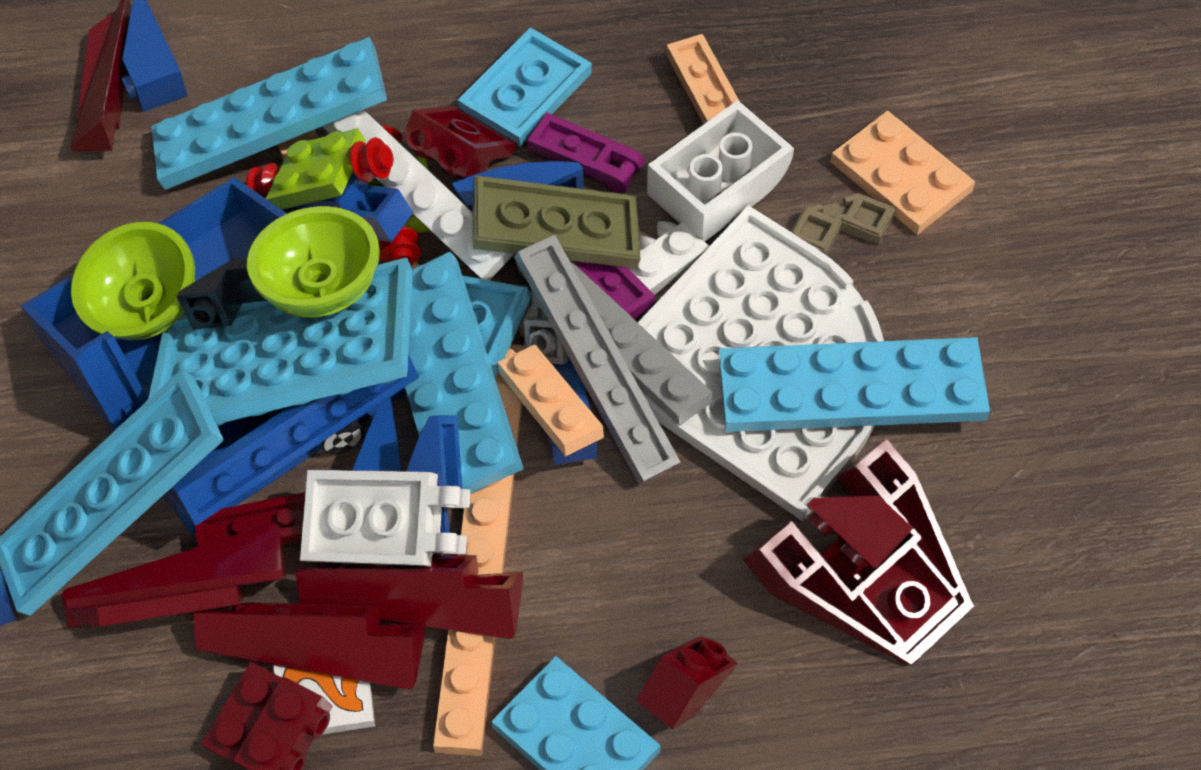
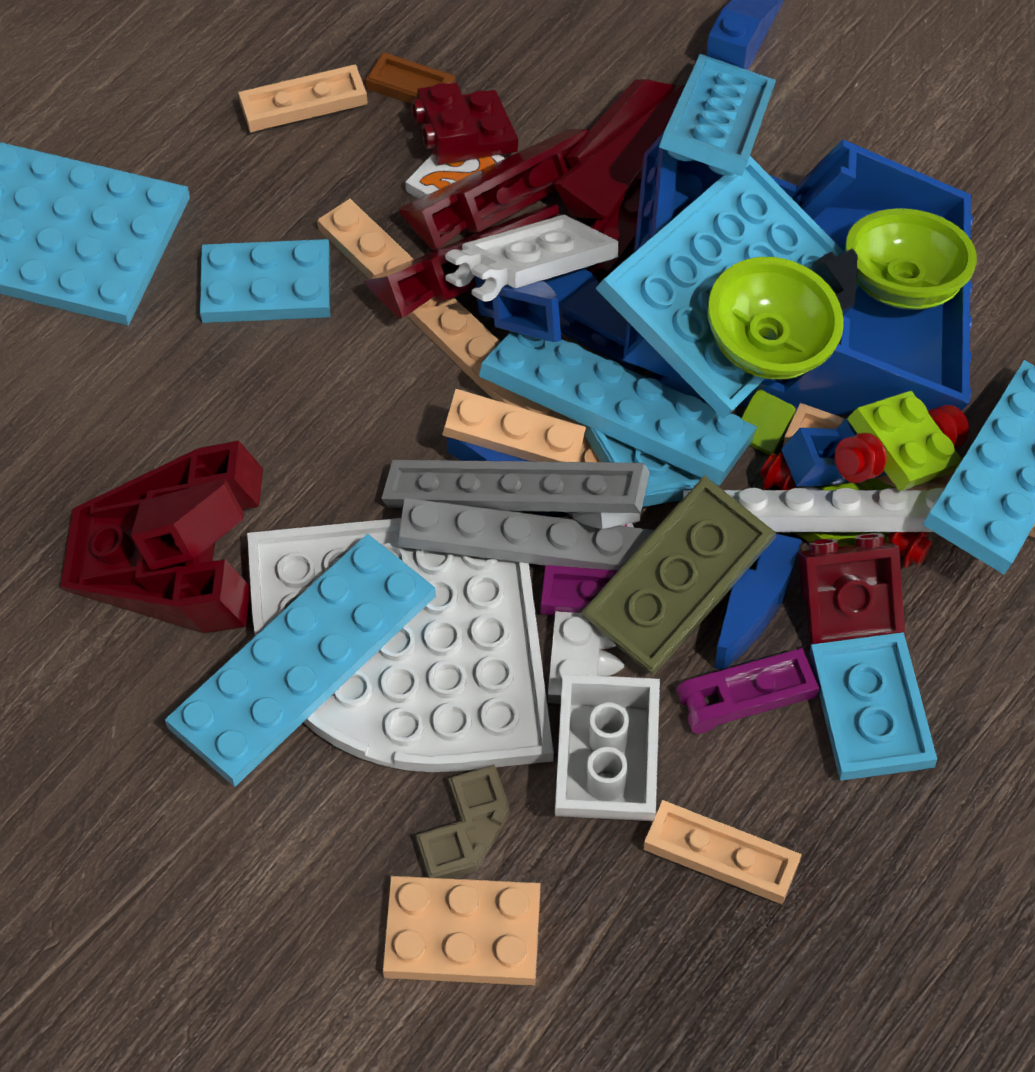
camera: 135 degrees right, 0 degrees up
(685, 680) = (220, 361): dark red slope -> none

